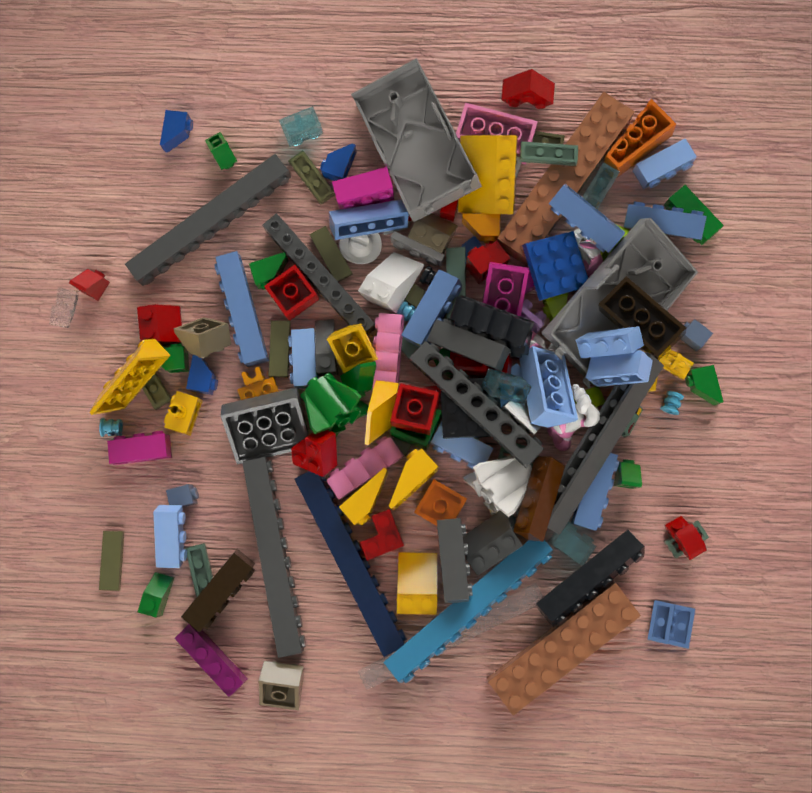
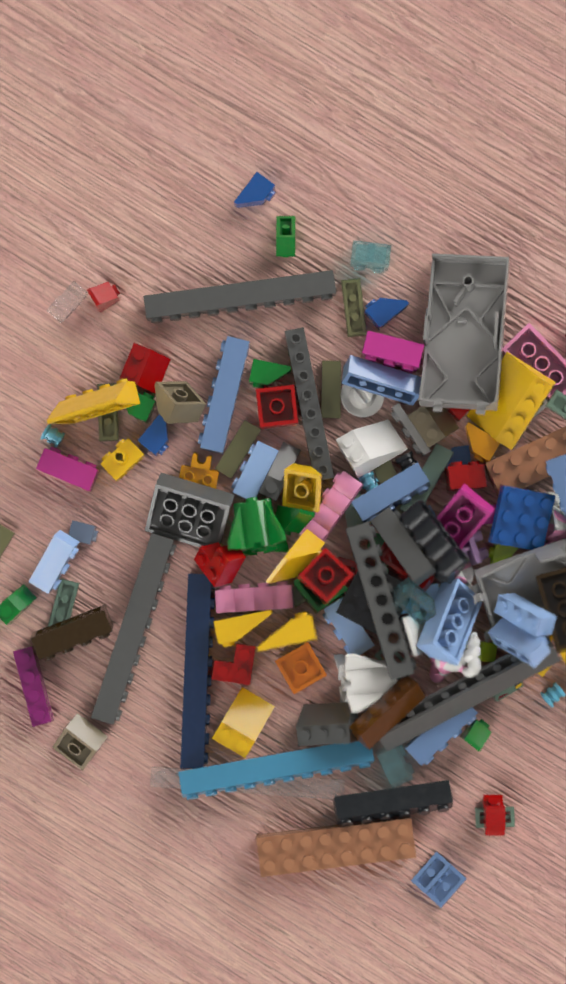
camera: 20 degrees right, 5 degrees up
(452, 560) = (284, 721): dark grey brick -> none

